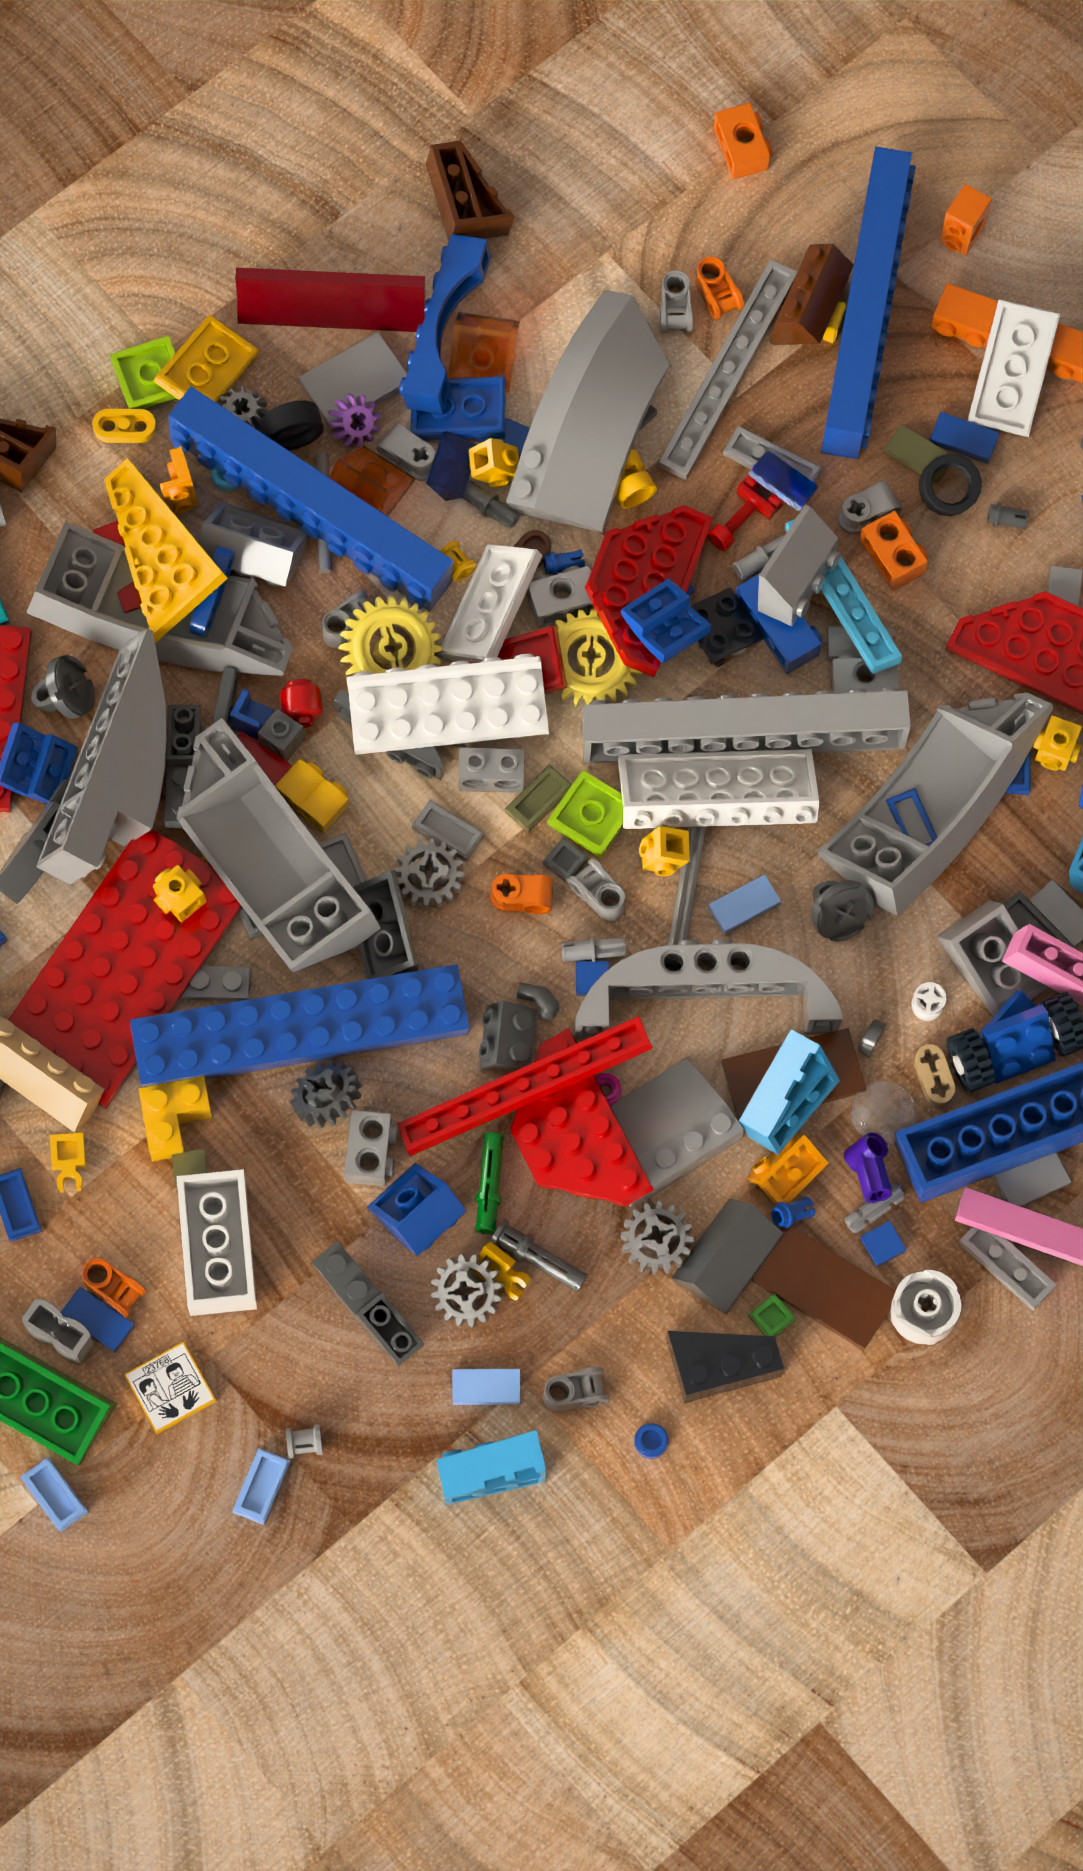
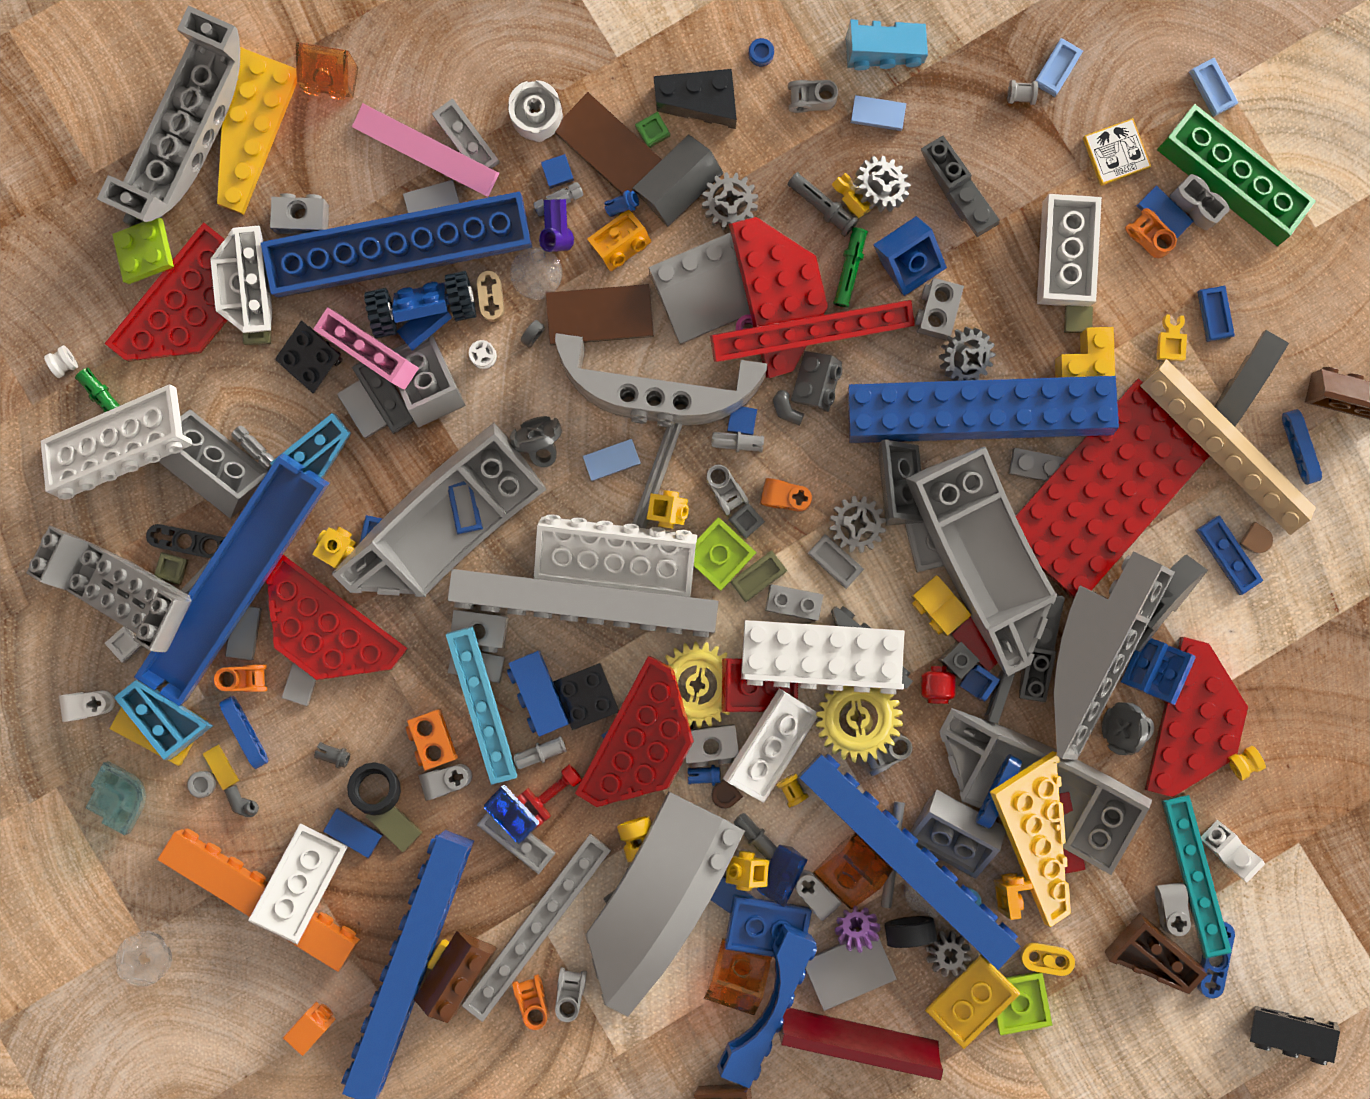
camera: 170 degrees left, 15 degrees up
(178, 892) = (1064, 530): yellow brick -> none
(665, 620) = (632, 699): blue slope -> none
(789, 1092) = (609, 287): wedge -> none
(797, 568) = (515, 724): light grey slope -> none

